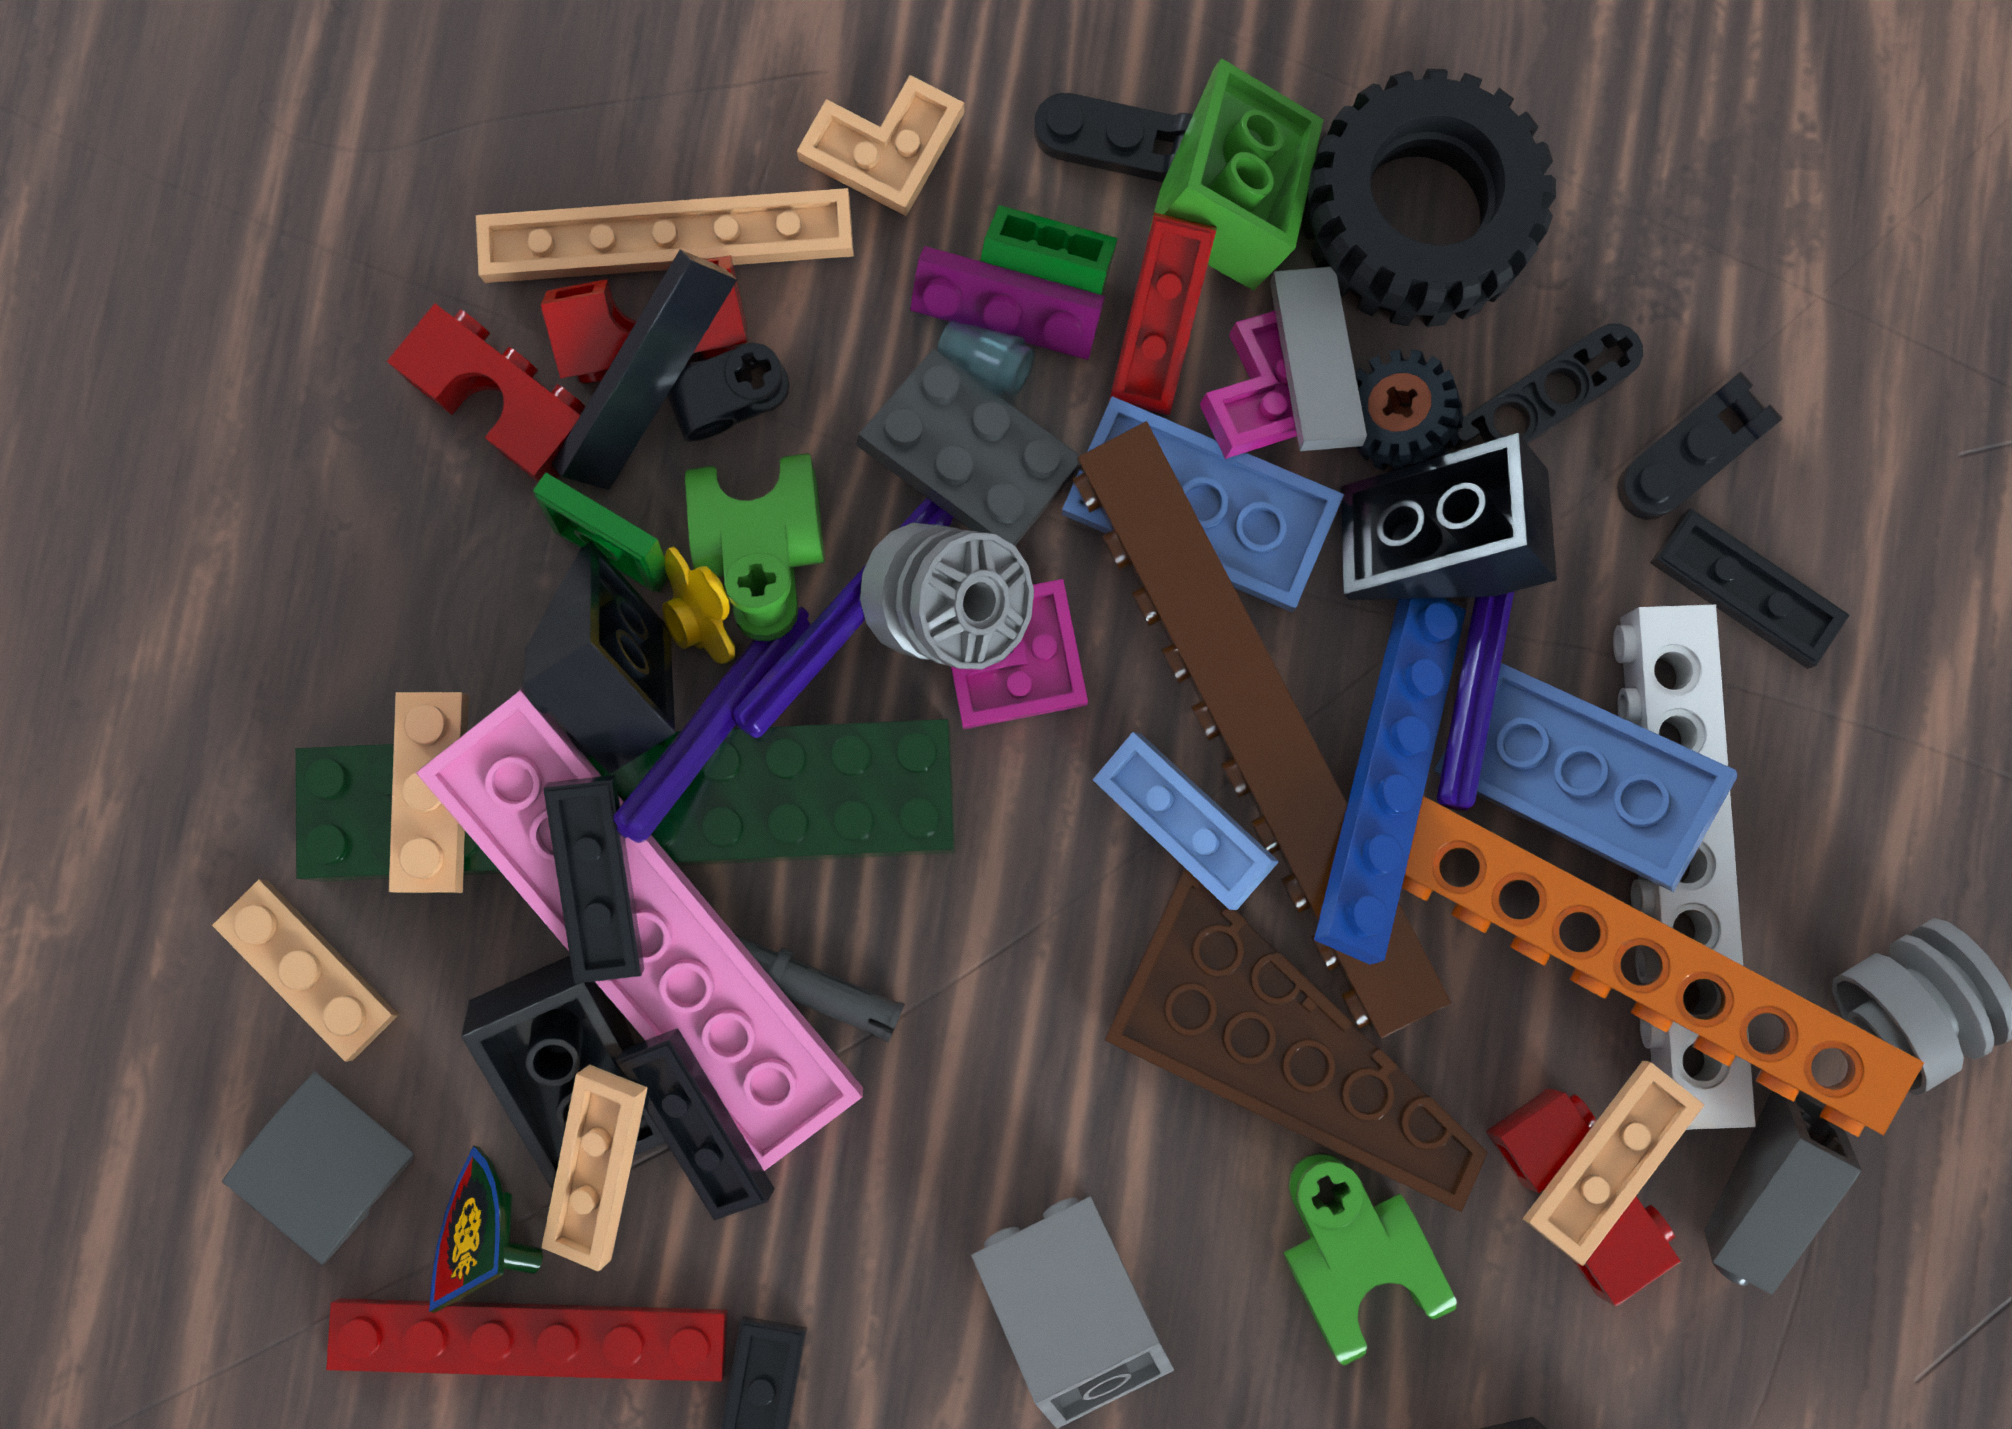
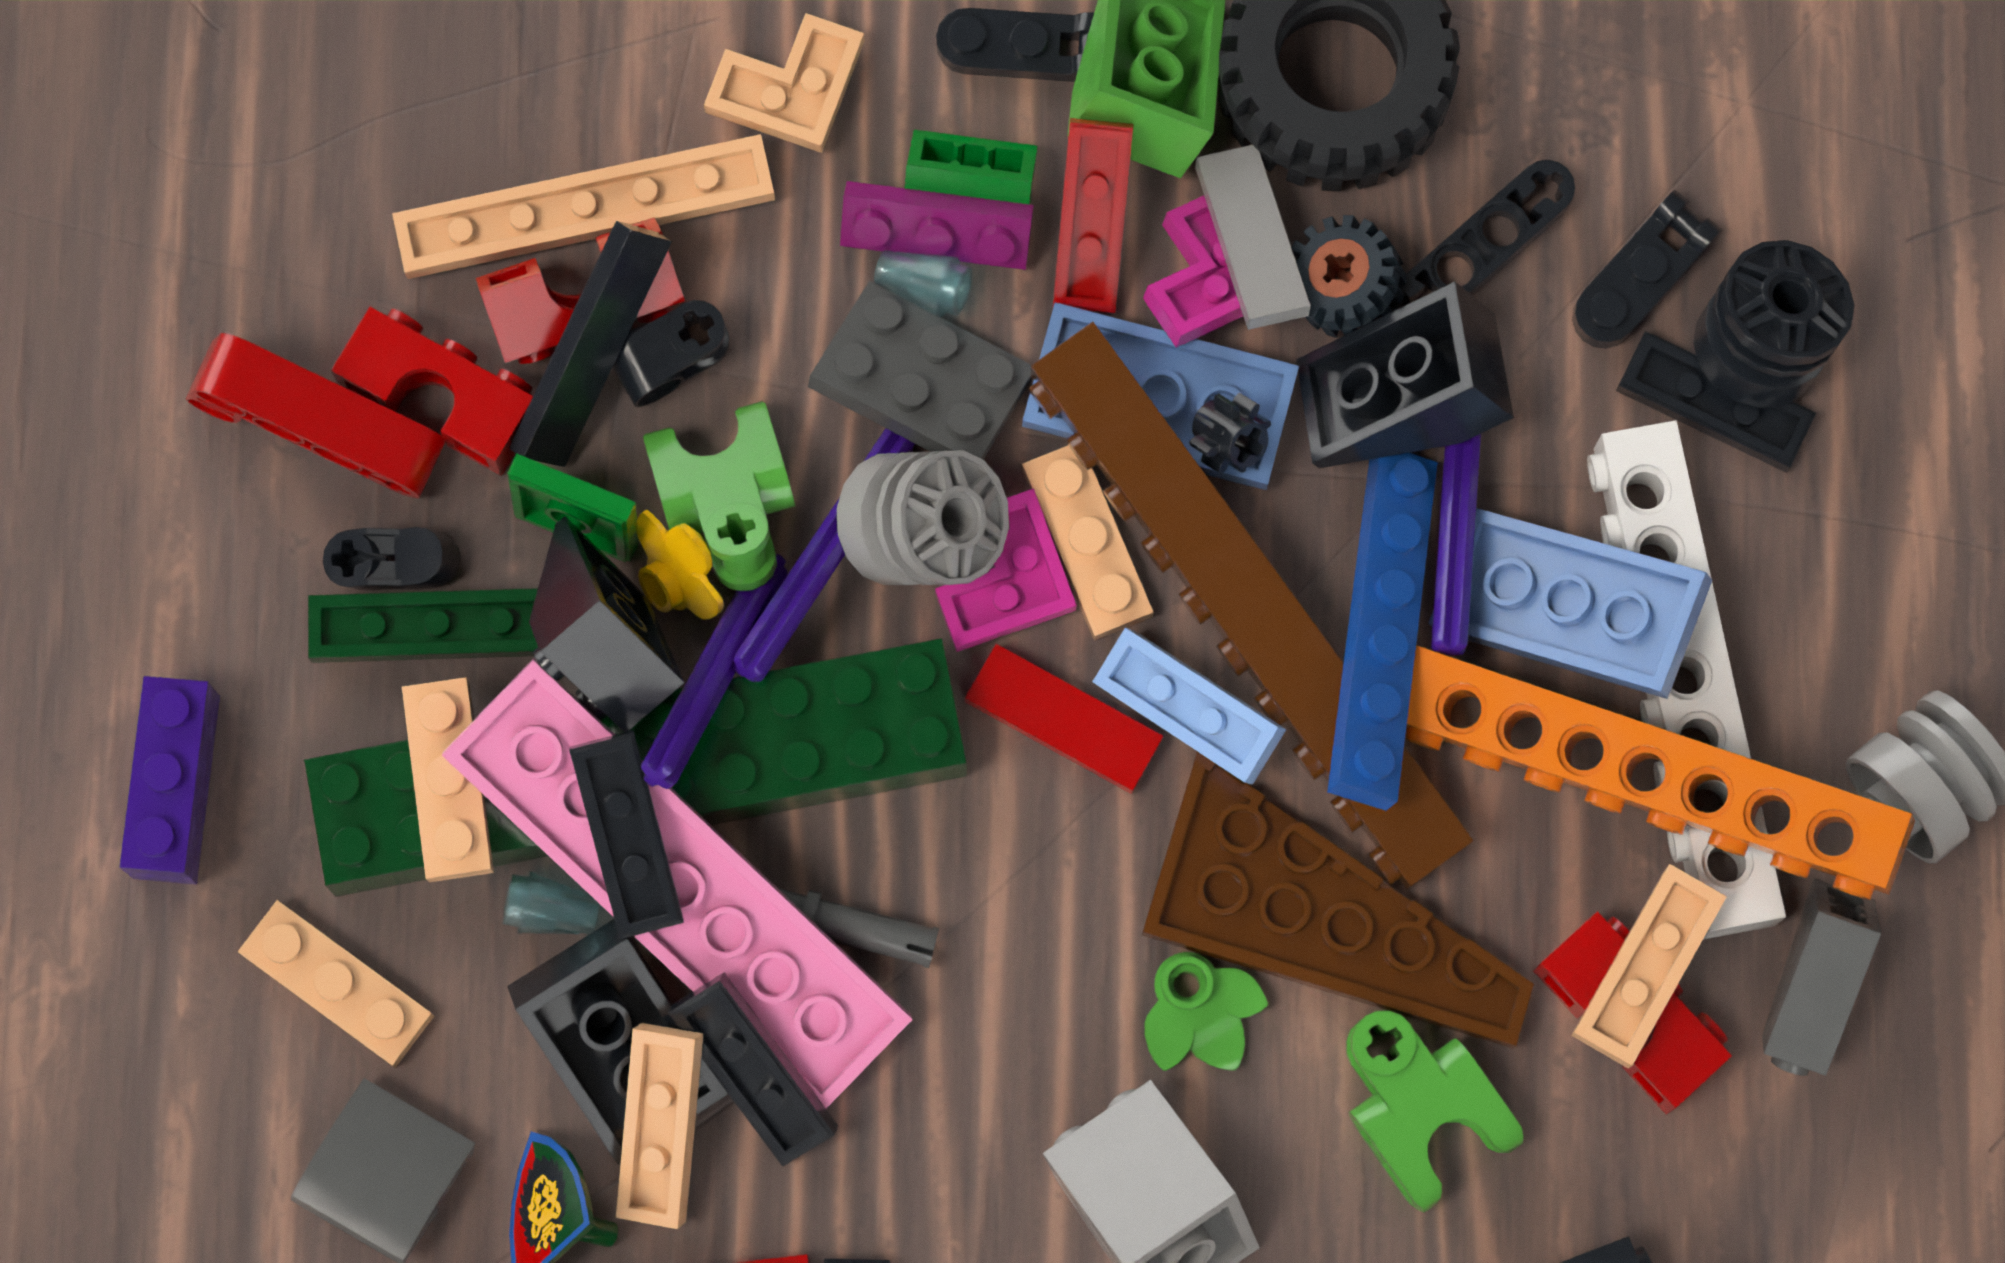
camera: 10 degrees left, 5 degrees down
(169, 746) = (170, 780): none -> dark purple brick
(367, 403) = (314, 413): none -> red beam
(395, 550) = (361, 556): none -> black piece
(431, 625) = (420, 625): none -> dark green plate
(514, 926) = (548, 907): none -> clear light blue cone
(1059, 811) = (1063, 718): none -> red tile
(1108, 639) = (1088, 543): none -> light nougat plate
(1151, 1135) = (1205, 1022): none -> bright green plate
(1267, 553) = (1230, 433): none -> black gear
(1829, 520) = (1773, 323): none -> black wheel

